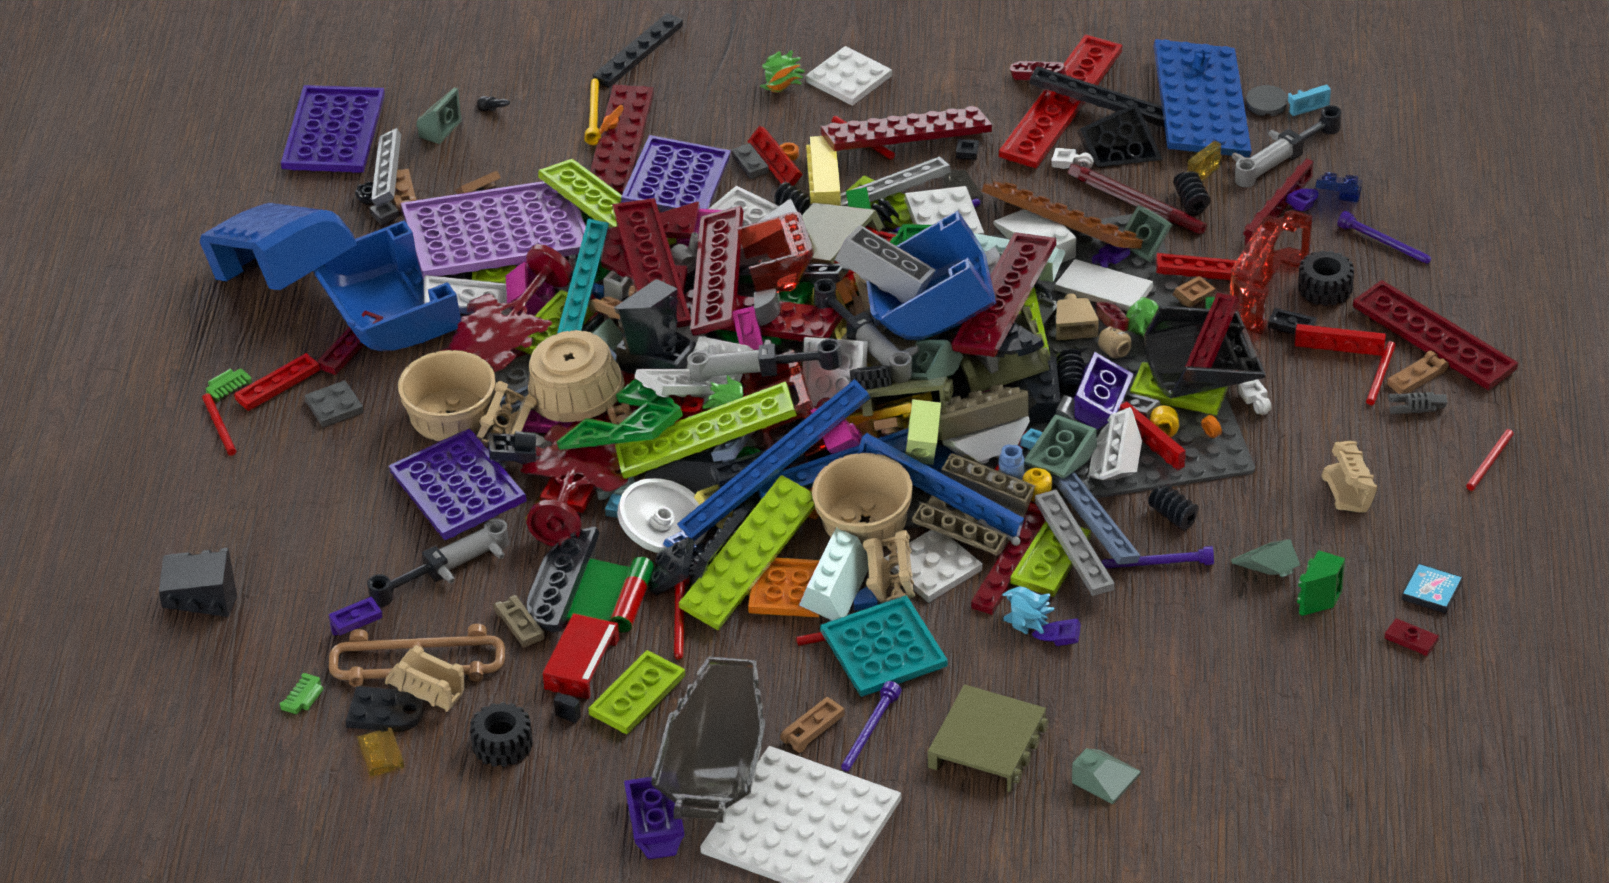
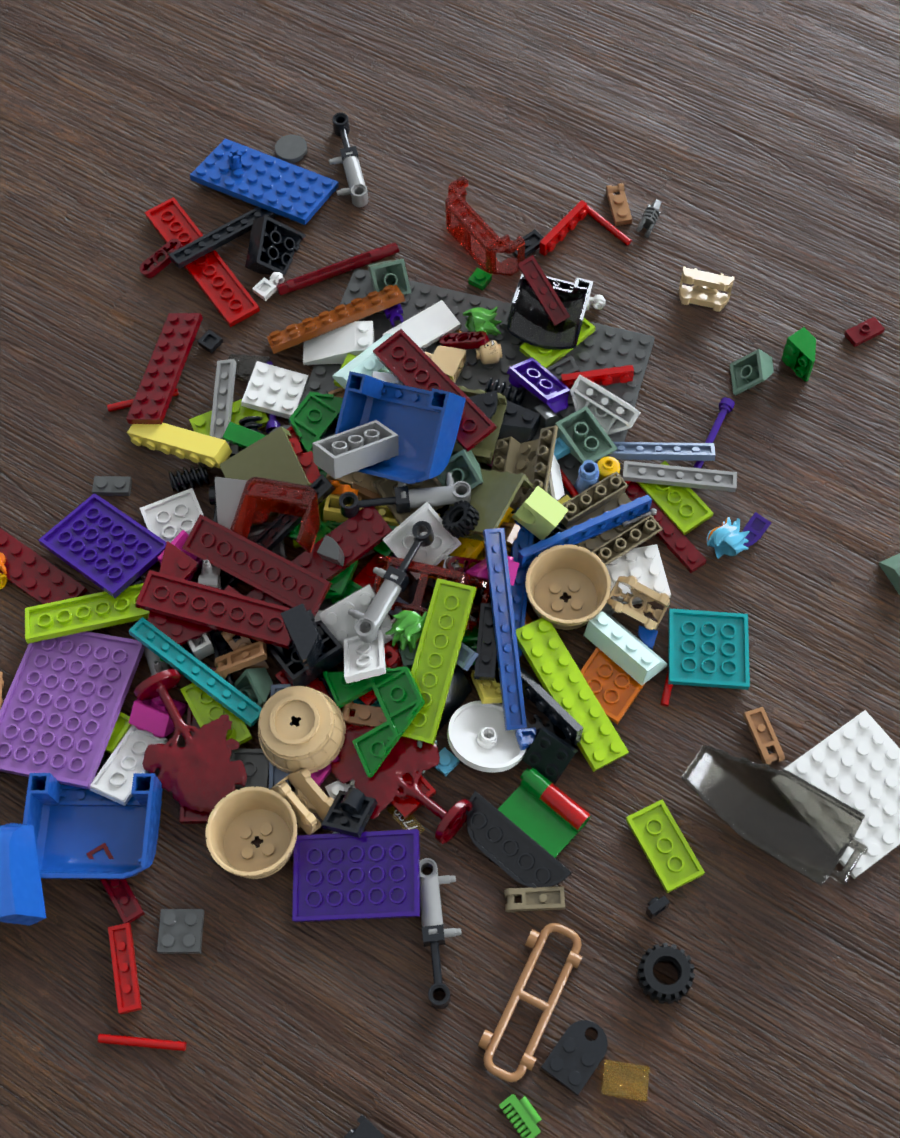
camera: 60 degrees left, 20 degrees up
(228, 381) = (89, 1015): bright green piece -> none
(354, 616) = (468, 1032): dark purple panel -> none
(428, 678) = (569, 998): tan piece -> none
(579, 655) = (606, 869): red panel -> none
(653, 819) = (805, 897): dark purple slope -> none
(679, 620) = (604, 780): red piece -> none
(748, 327) = (344, 577): dark pink plate -> none
(774, 156) = (125, 467): red plate -> none
(781, 72) = (35, 416): bright green hair -> none
(791, 150) = (121, 455): orange tile -> none
(848, 75) = (66, 376): white plate -> none
(889, 693) = (758, 669): dark purple piece -> none
(989, 734) = (838, 626): olive panel -> none
(1165, 419) = (588, 361): yellow head -> none
(1174, 506) = (671, 398): black piece -> none
(1191, 192) = (358, 235): black piece -> none
(1193, 291) = (462, 283): medium nougat plate -> none
(1194, 266) = (438, 267): red plate -> none
(1206, 160) = (338, 215): clear yellow plate -> none
(1211, 426) = (608, 339): orange tile -> none
(1277, 204) = (406, 197): dark red plate -> none
(1302, 199) = (408, 178): dark purple plate -> none
(1309, 100) = (311, 130): medium azure plate -> none
(1325, 278) = (500, 214): black tyre -> none
(1348, 186) = (412, 151): clear blue plate -> none
(1348, 221) = (447, 166): dark purple piece -> none
(1432, 588) = (825, 298): tile -> none
(1436, 334) = (589, 176): dark red plate -> none
(1489, 460) = (723, 208): bar -> none

